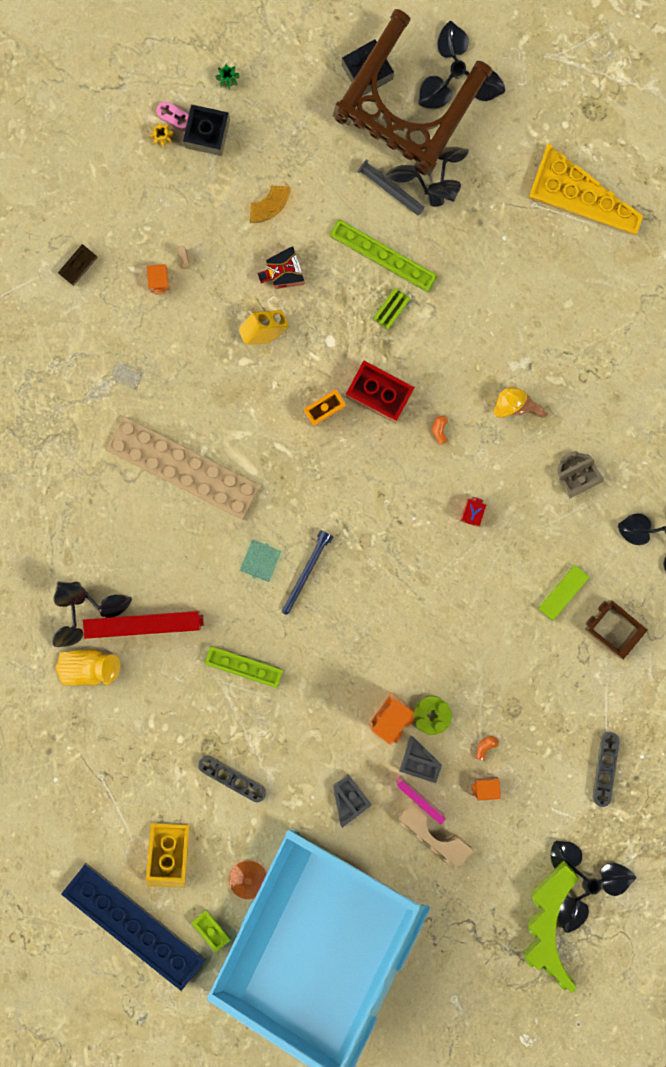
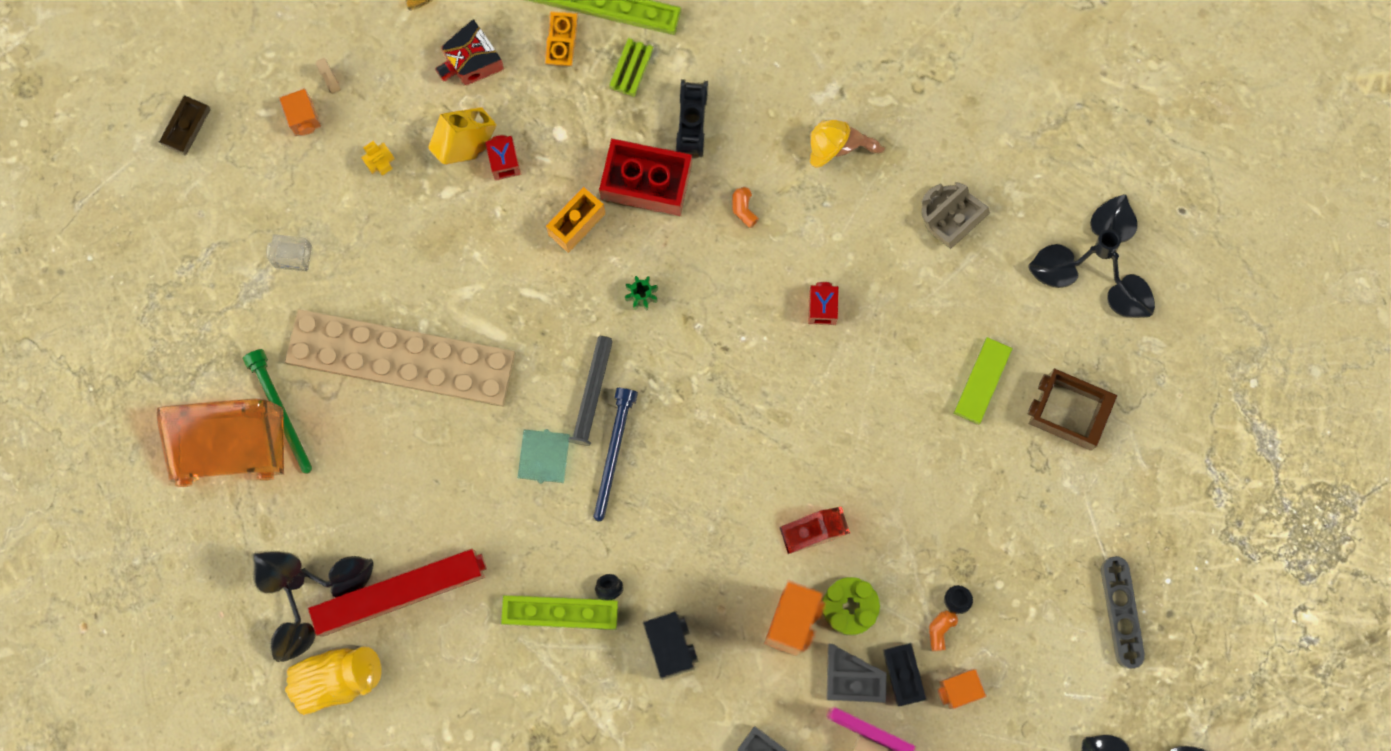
camera: 15 degrees left, 10 degrees down
(53, 494) = (222, 440): none -> clear orange windscreen
(87, 445) = (257, 363): none -> green piece
(202, 326) = (377, 158): none -> yellow gear
(279, 660) = (608, 587): none -> black plate
(287, 349) = (503, 157): none -> red brick
(304, 526) = (592, 391): none -> dark grey axle
(308, 710) = (669, 645): none -> black brick
(349, 274) = (561, 38): none -> light orange slope
(358, 466) = (646, 287): none -> green gear
(423, 660) = (814, 529): none -> clear red slope
(427, 347) = (692, 101): none -> black piece
(453, 769) = (904, 674): none -> black plate
(502, 731) = (958, 599): none -> black plate

